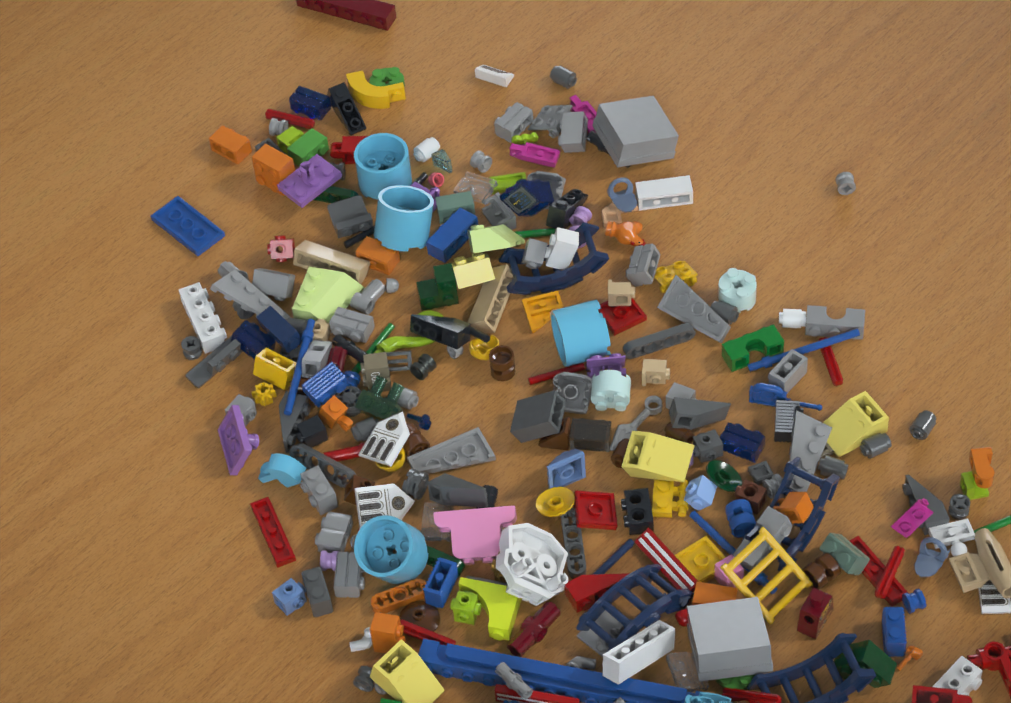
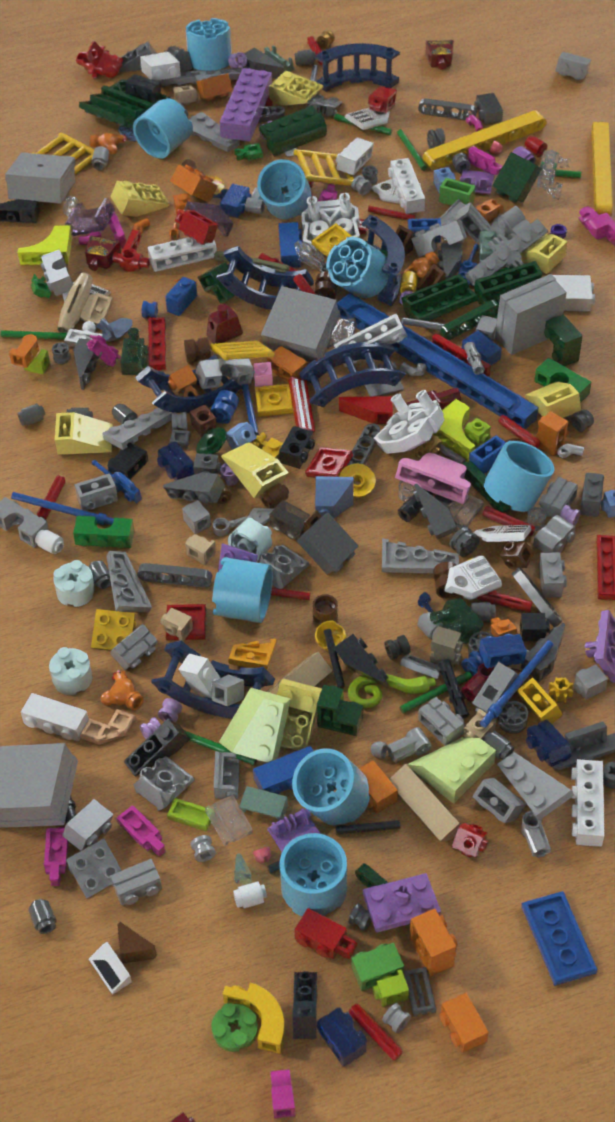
camera: 155 degrees left, 0 degrees up
(279, 329) = (519, 728): dark blue brick -> none
(283, 468) = (578, 601): medium azure brick -> none
(330, 60) = (282, 1094): none -> dark pink leg
(350, 216) = (379, 840): dark grey bracket -> none
(487, 89) = (133, 946): none -> reddish brown slope
(522, 139) = (137, 855): lime piece -> none
(528, 197) = (191, 752): clear blue slope -> none
(615, 557) = (343, 427): dark blue bar -> none
(624, 199) = (98, 722): sand blue piece -> none
(679, 225) = (70, 671): none -> light aqua brick
(845, 553) = (172, 350): sand green brick -> none
(880, 533) = (133, 353): none -> clear green brick
(889, 572) = (155, 326): red axle -> none

